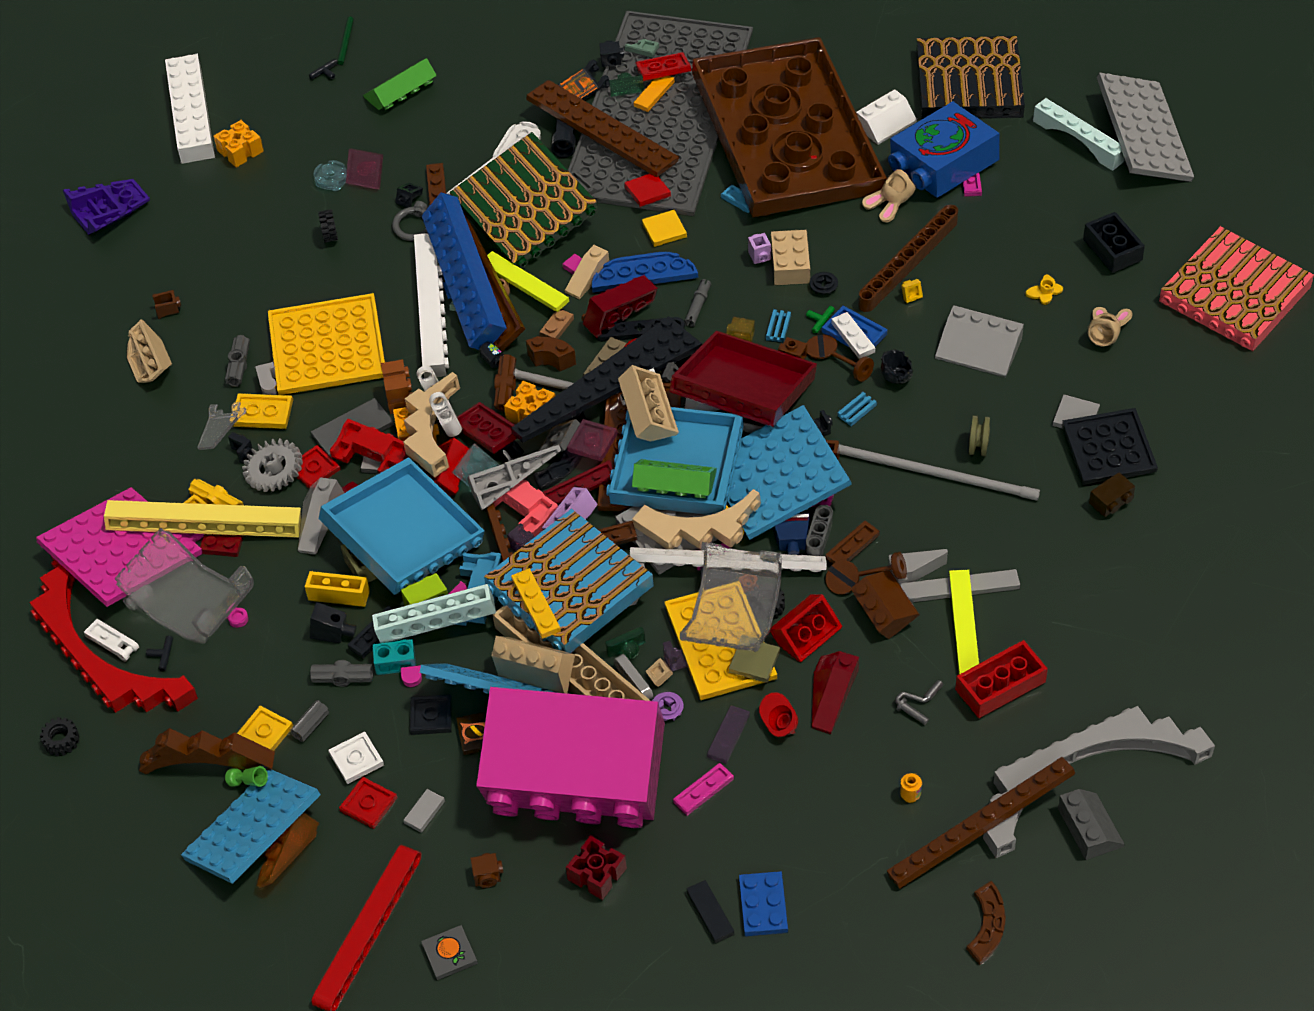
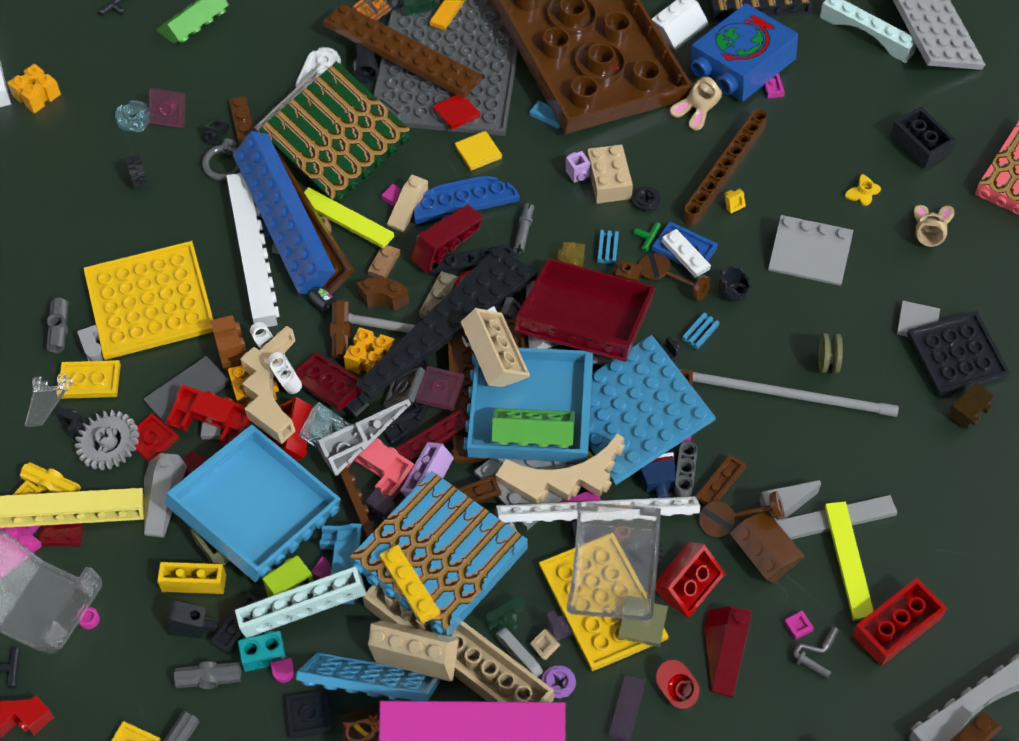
camera: 10 degrees left, 5 degrees up
(905, 676) = (798, 625): none -> dark pink tile

